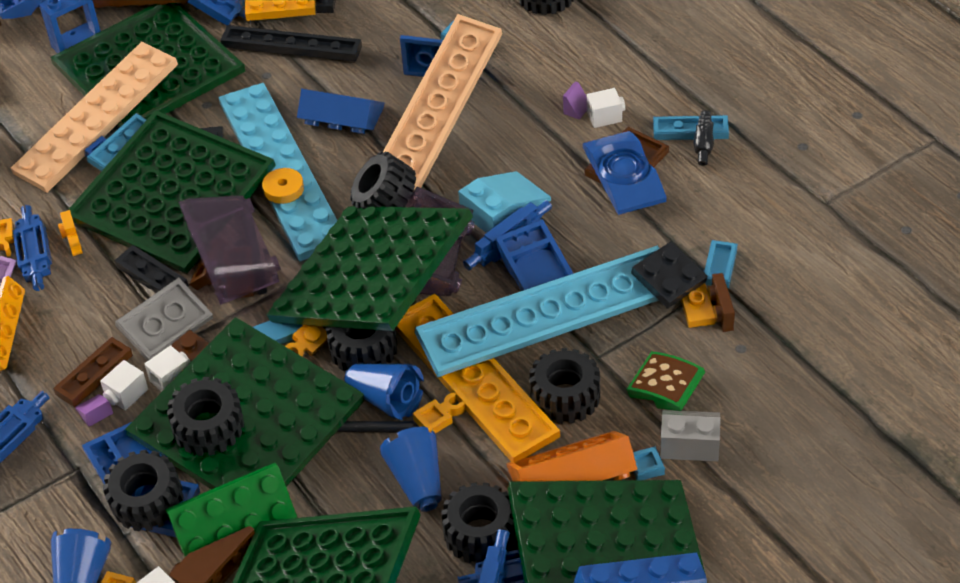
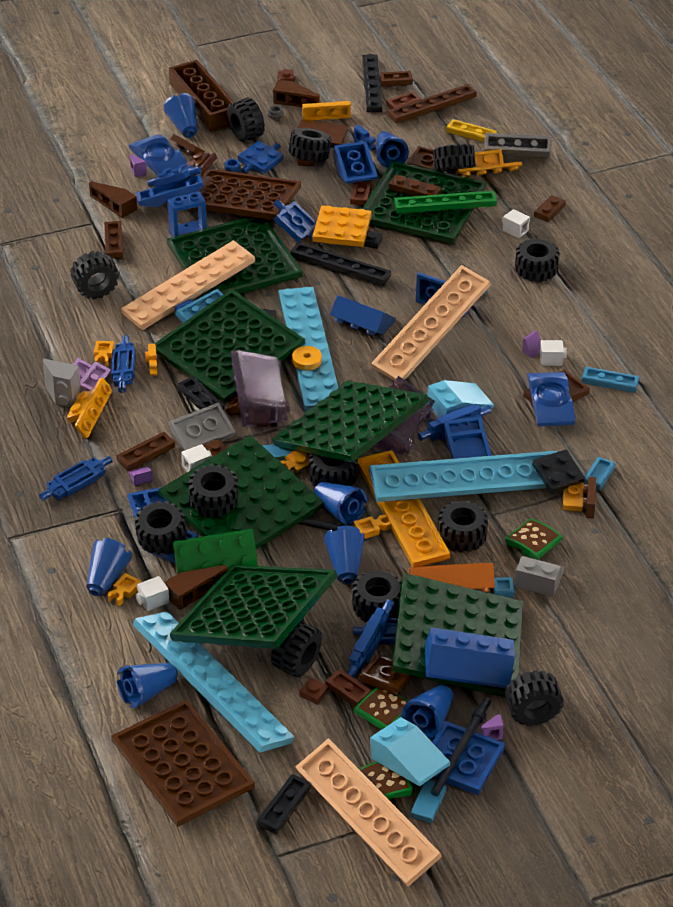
camera: 10 degrees right, 5 degrees down
(124, 385) = (164, 463): white brick -> none
(383, 183) = (376, 369): black tyre -> none
(703, 137) = (616, 387): black piece -> none

